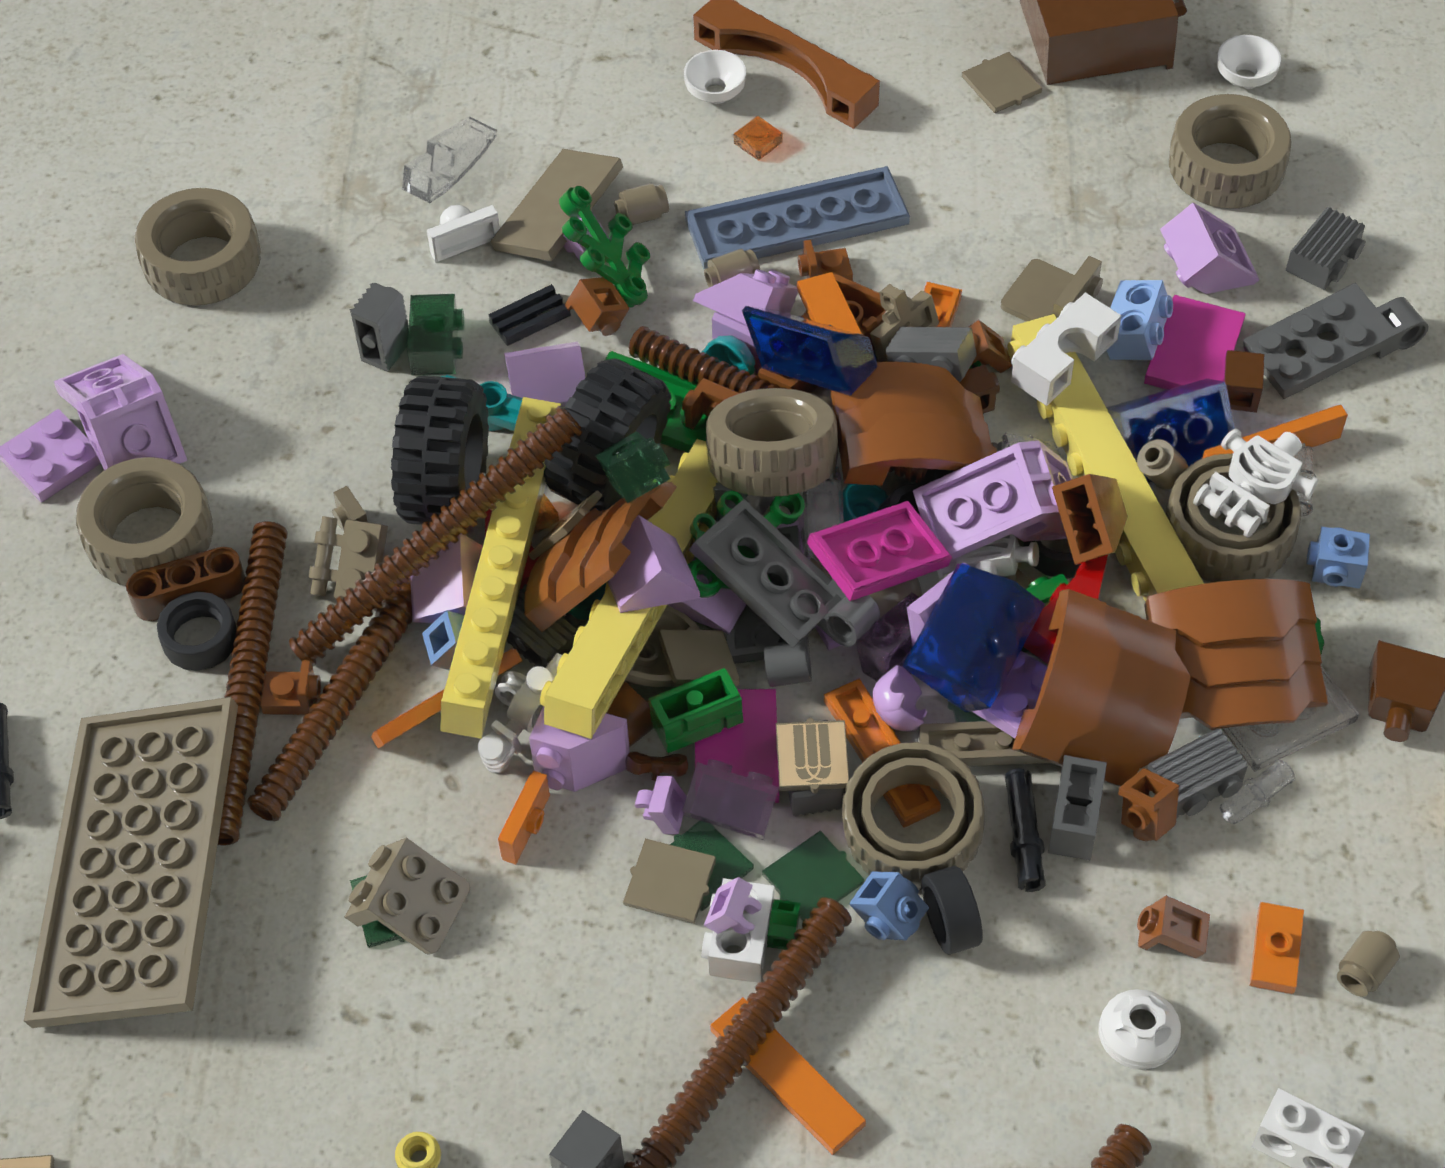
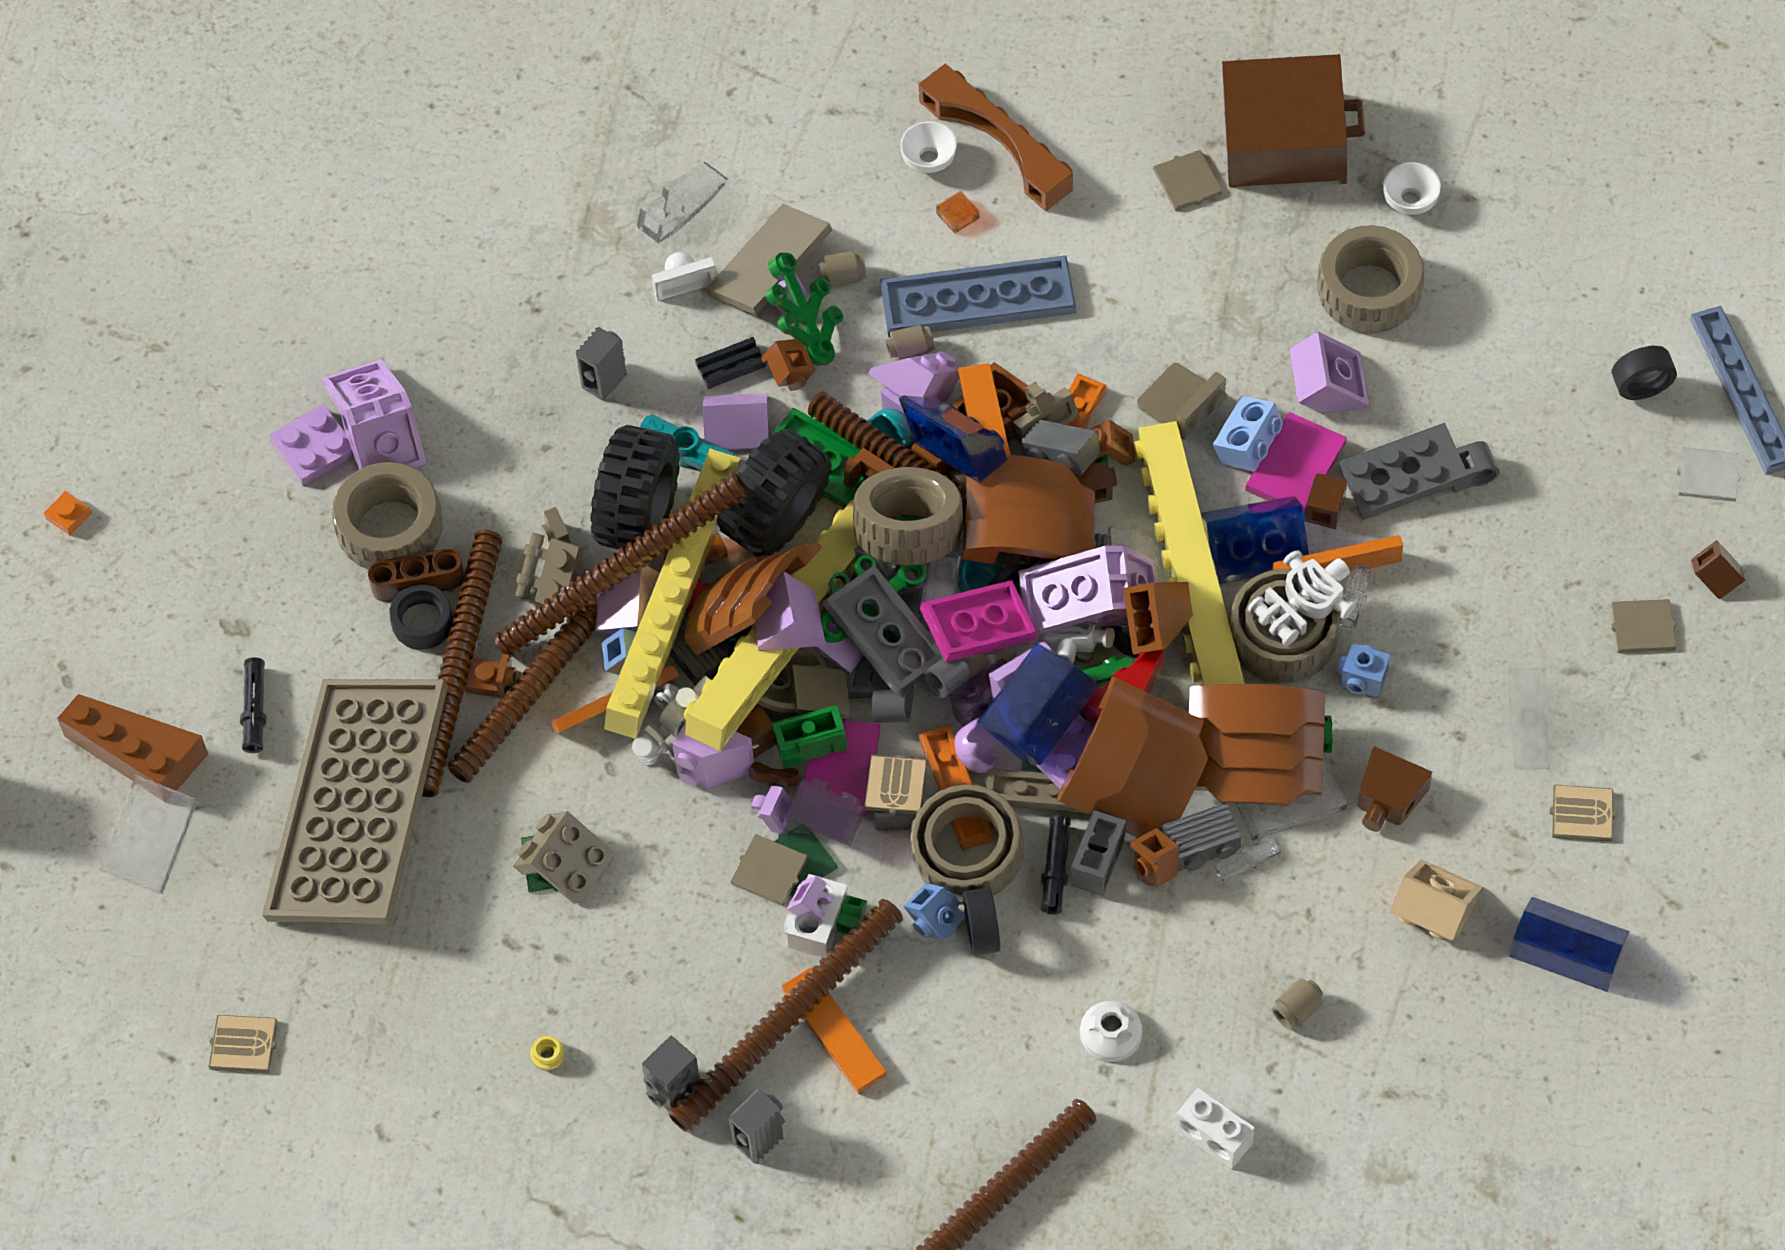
camera: 10 degrees right, 5 degrees up
(190, 216) = (451, 234): dark tan tyre -> none
(434, 334) = (642, 357): clear green brick -> none
(525, 817) = (663, 805): orange plate -> none
(565, 525) = (728, 567): dark tan piece -> none
(634, 466) = (785, 530): clear green brick -> none
(813, 872) = (883, 877): clear green piece -> none
(823, 262) = (992, 347): dark orange bracket -> none
(1082, 328) = (1192, 439): white arch -> none
(1161, 463) = (1234, 570): dark tan brick -> none
(1174, 926) = (1154, 956): dark orange bracket -> none
(1276, 948) = (1232, 982): orange plate -> none
(1326, 248) = (1432, 384): dark grey brick -> none

